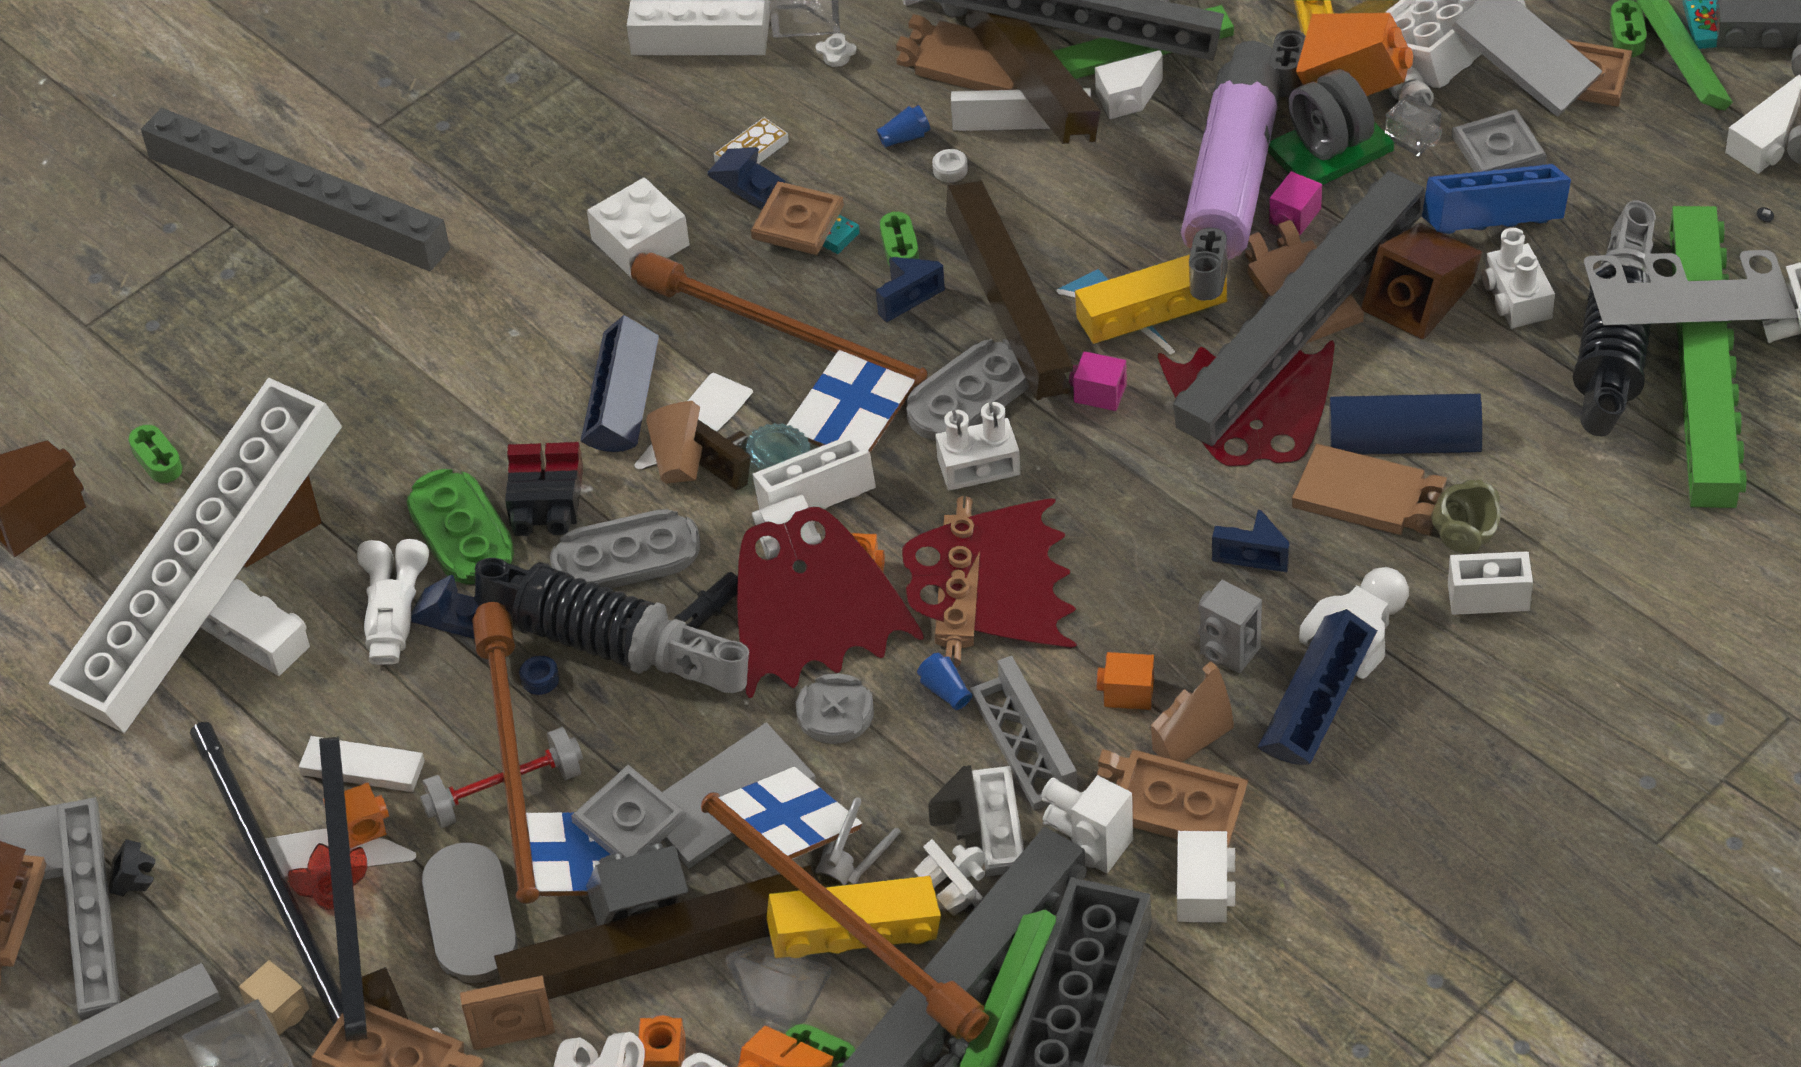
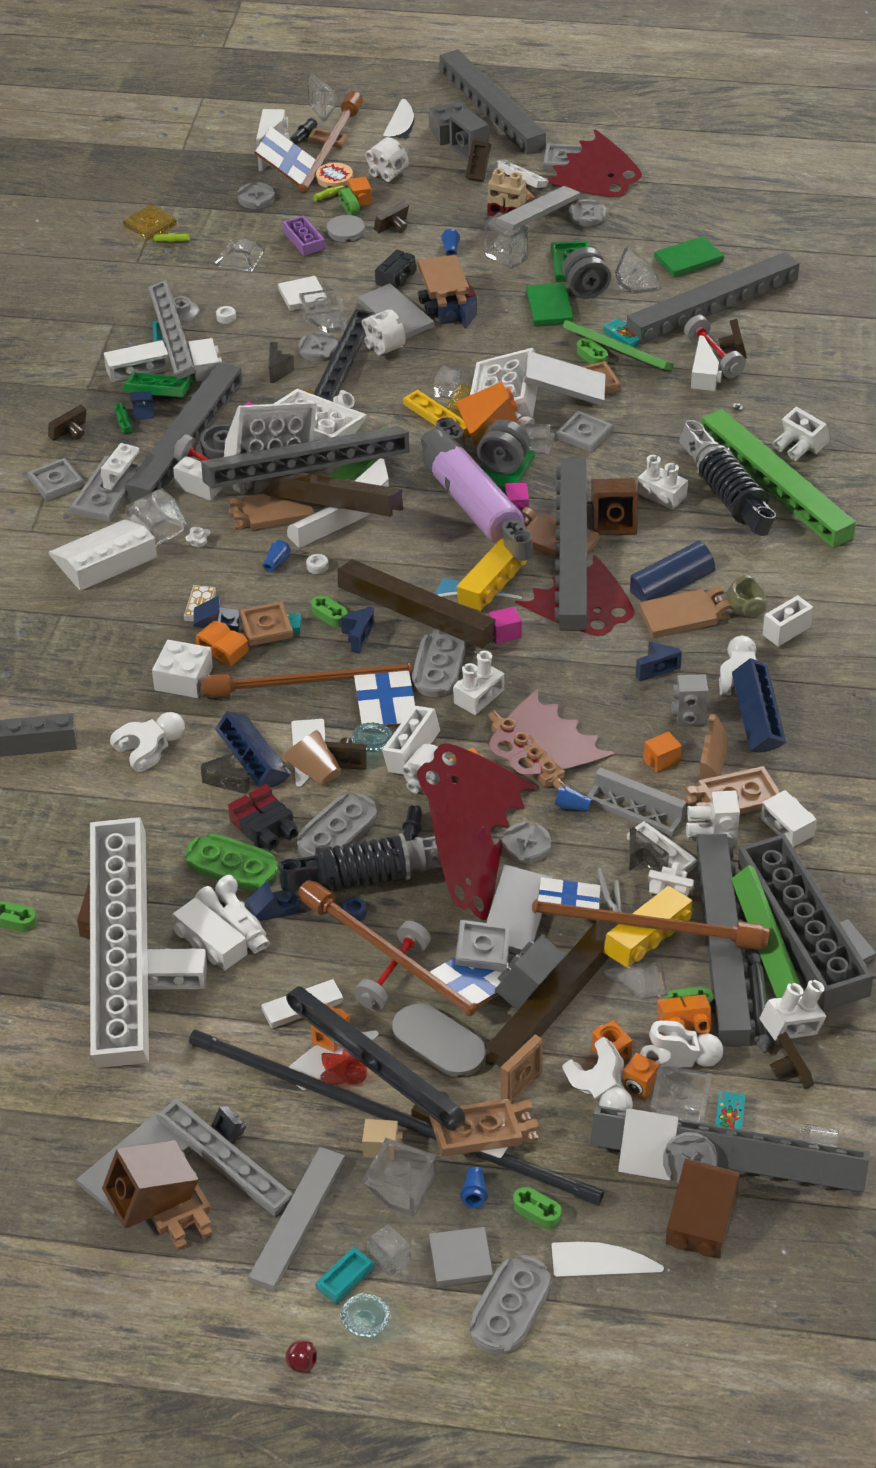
camera: 40 degrees left, 5 degrees down
(336, 607) = (210, 932): none -> white brick
(510, 304) = (147, 739): none -> white piece
(556, 400) = (223, 774): none -> clear smoke slope
(708, 674) = (466, 856): none -> dark red piece
(721, 217) = (225, 644): none -> orange brick
(1495, 198) = (618, 450): blue brick -> none
(1681, 300) = (756, 453): light grey piece -> none

